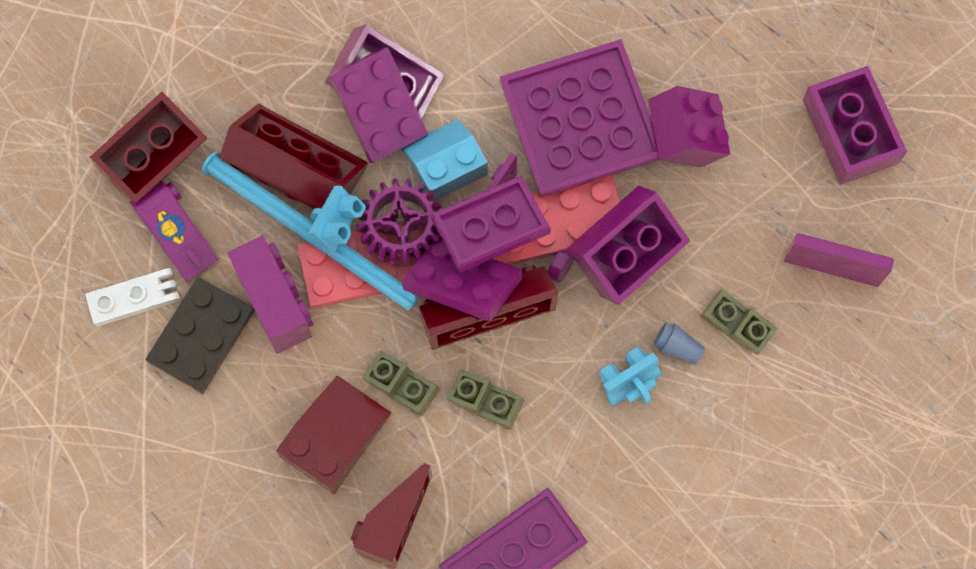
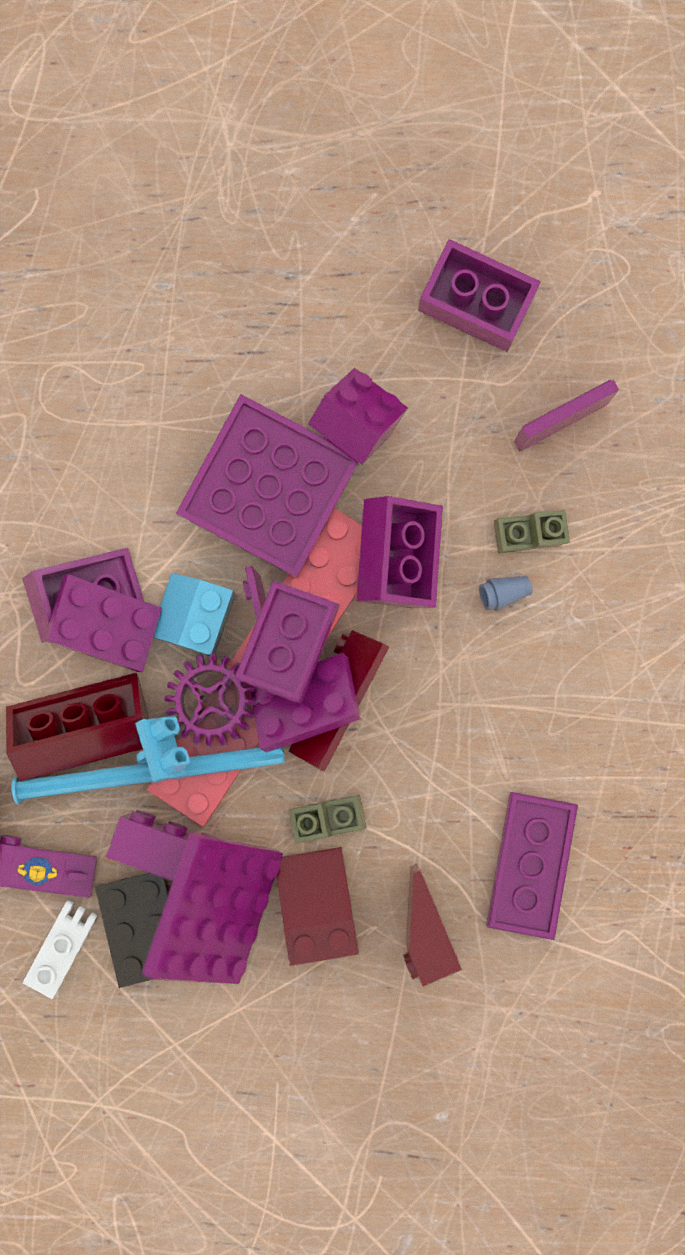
camera: 45 degrees left, 10 degrees up
(262, 358) = (212, 911): none -> magenta plate
(485, 399) = (402, 770): olive slope -> none
(560, 265) = (360, 616): magenta tile -> none
(632, 382) = (497, 636): medium azure hips -> none

